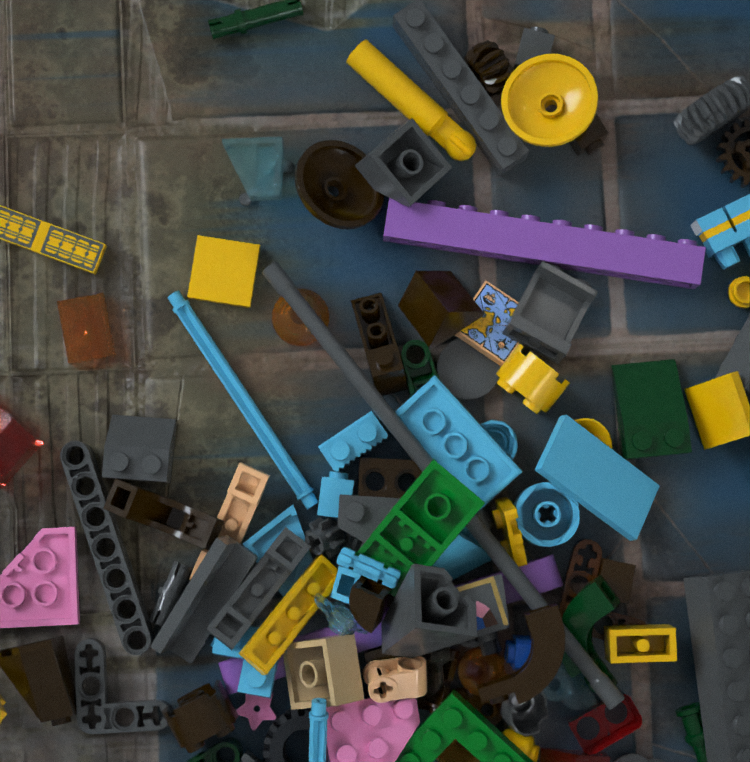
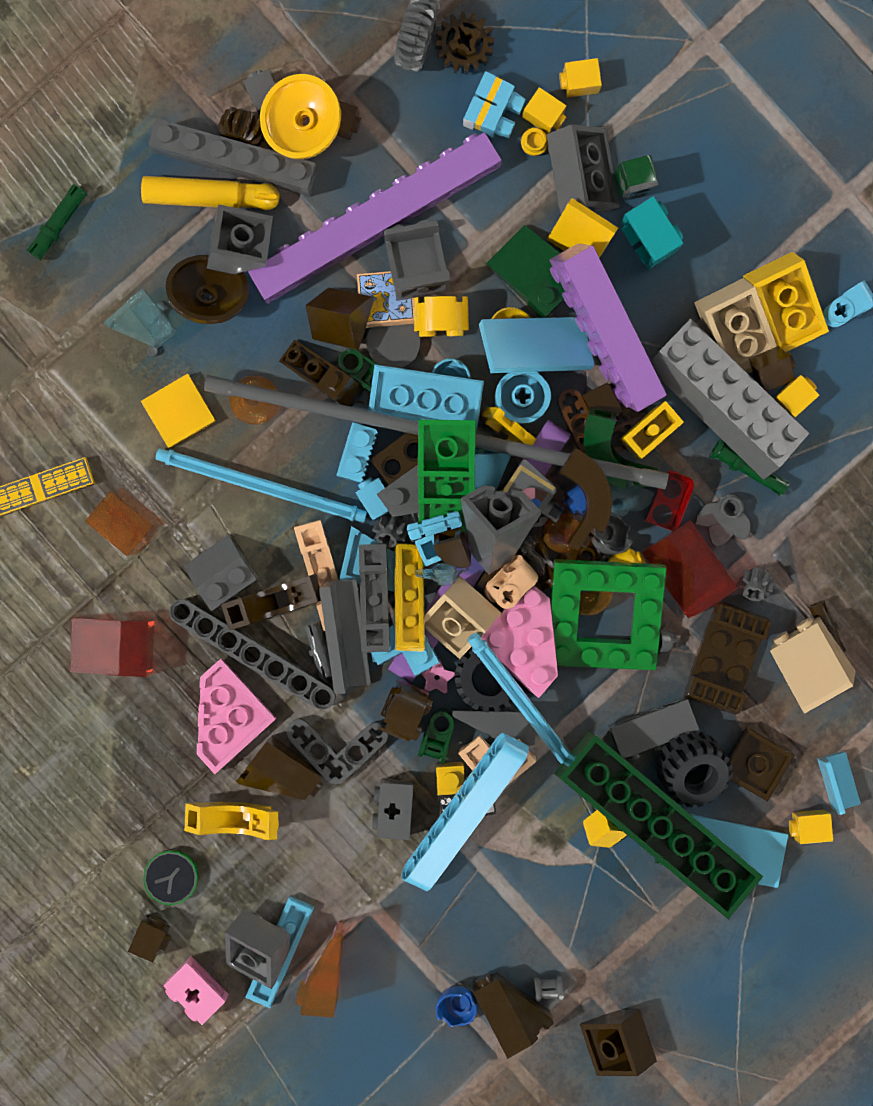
camera: 40 degrees left, 5 degrees up
(675, 515) = (607, 326): none -> medium lavender brick

